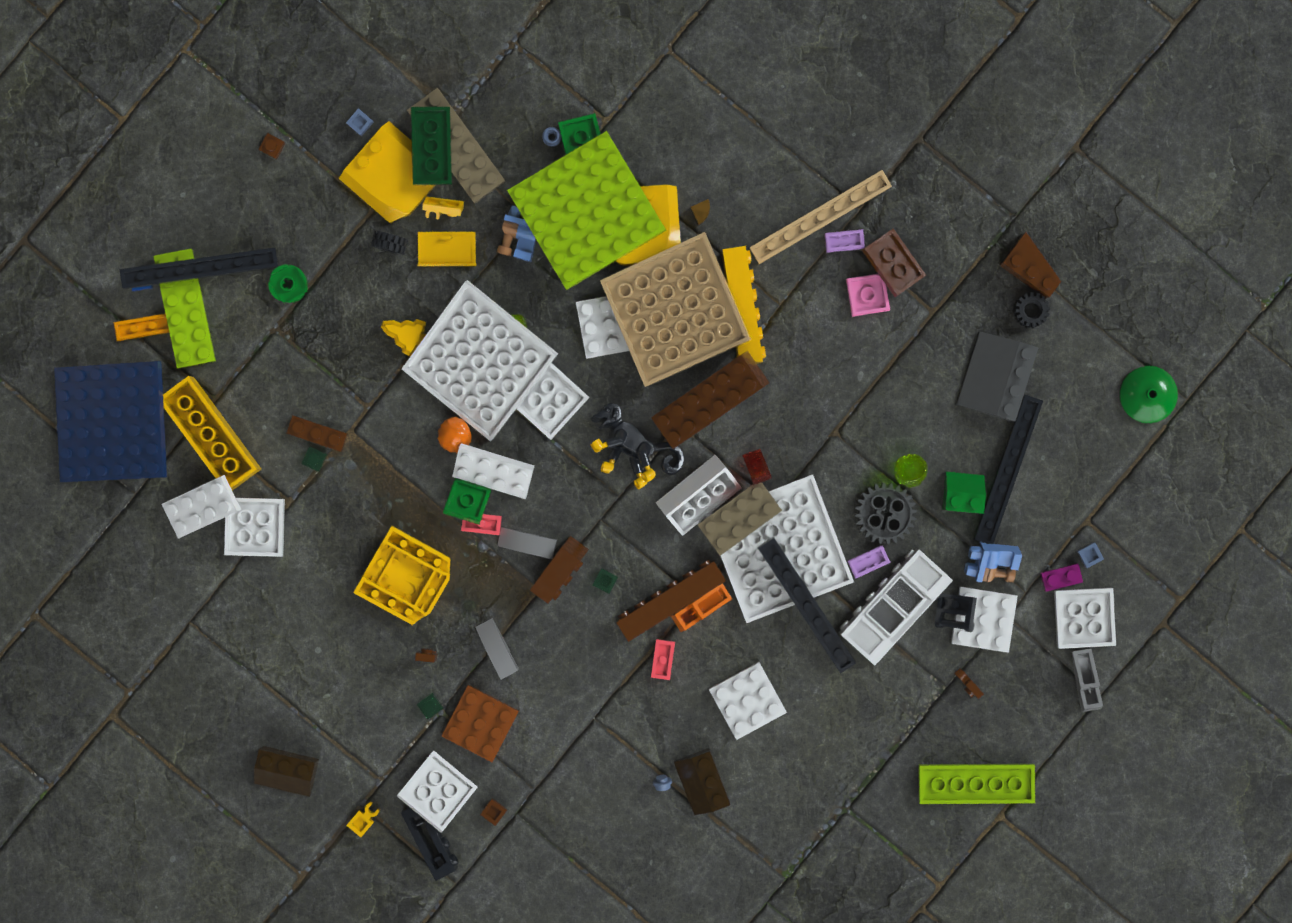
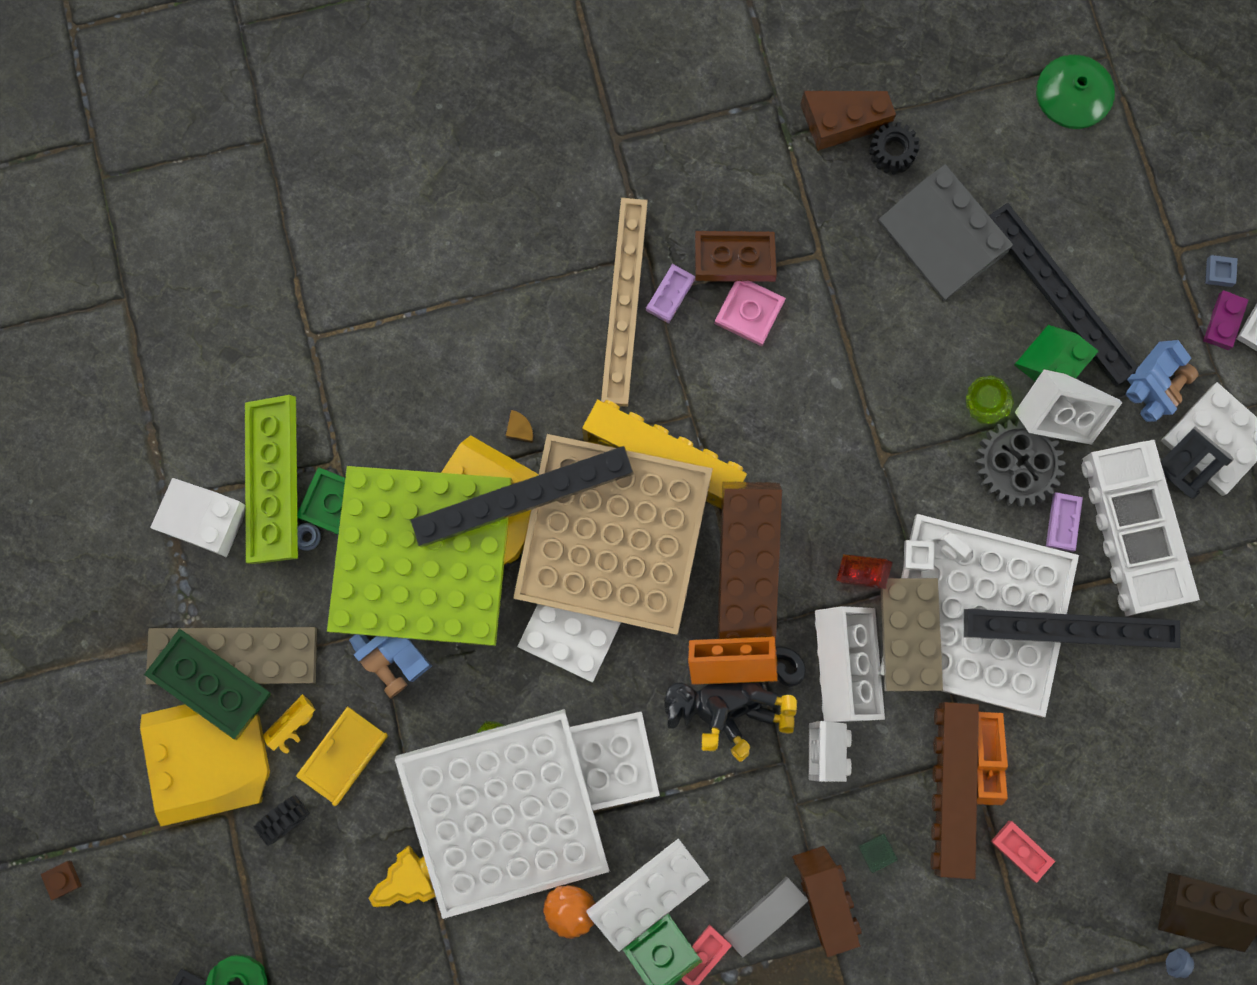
camera: 60 degrees left, 10 degrees down
(360, 122) = (116, 751): sand blue plate -> none
(518, 66) = (199, 517): none -> white slope
(569, 91) = (271, 480): none -> lime plate
(641, 516) = (829, 751): none -> white slope
(652, 427) = (732, 660): none -> orange brick
(658, 244) = (522, 496): none -> black plate
(747, 700) = (1140, 783): white plate -> none
(787, 491) = (919, 555): none -> white plate
(805, 507) = (954, 547): none -> white plate
(934, 517) = (1066, 408): none -> white slope

